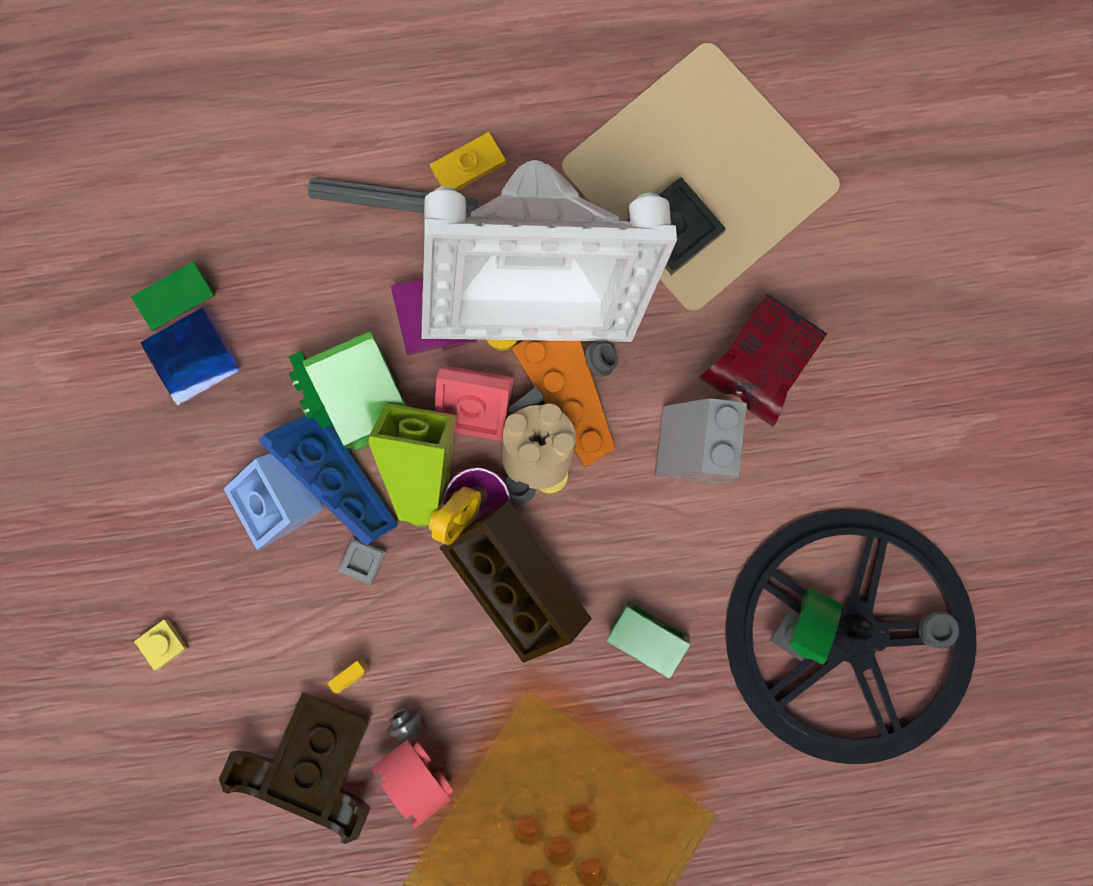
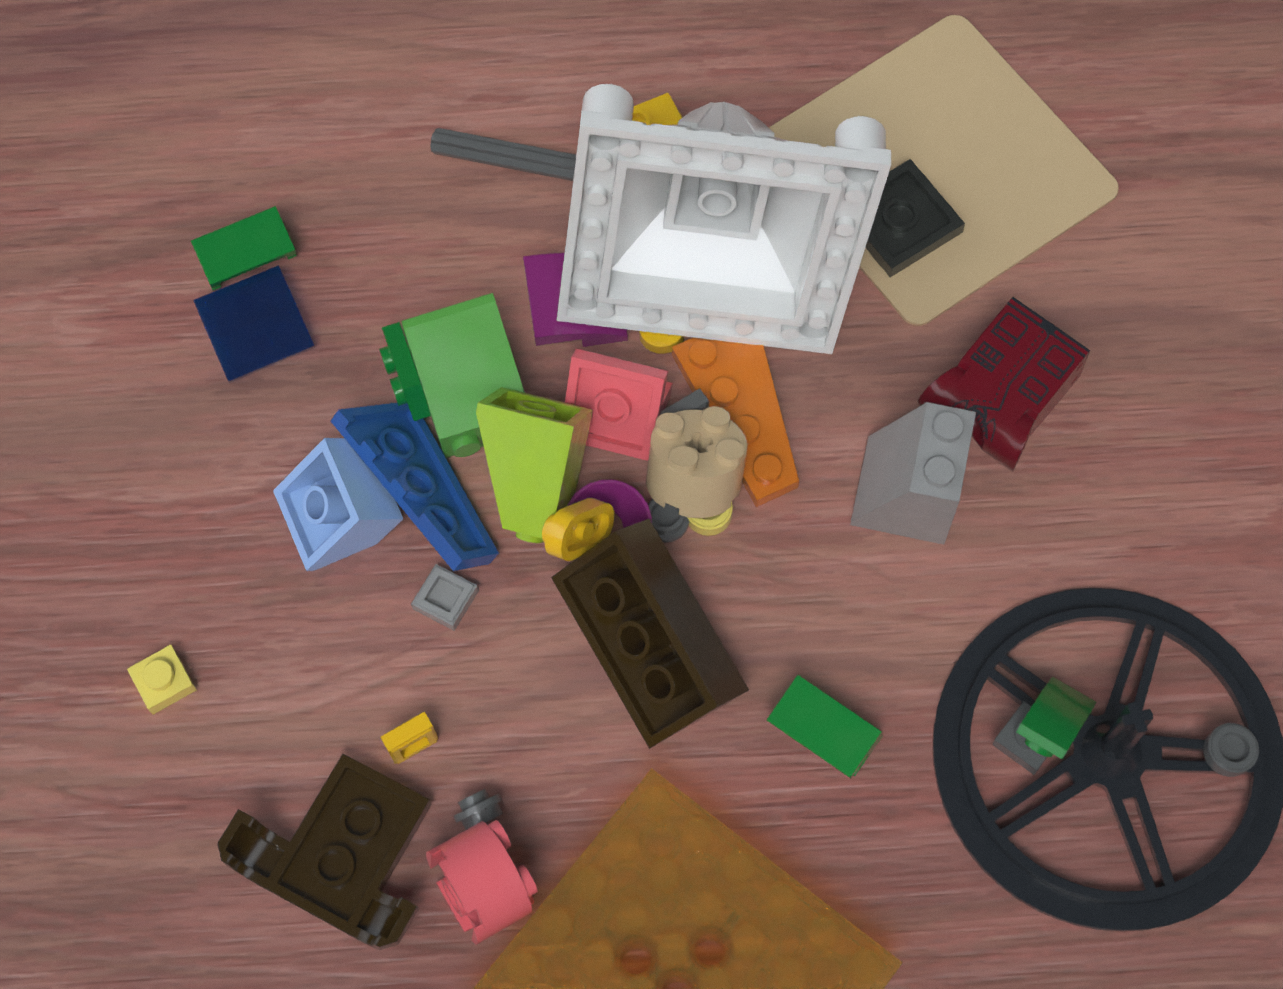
camera: 10 degrees right, 15 degrees down
(601, 358) = (789, 368): dark grey plate -> none

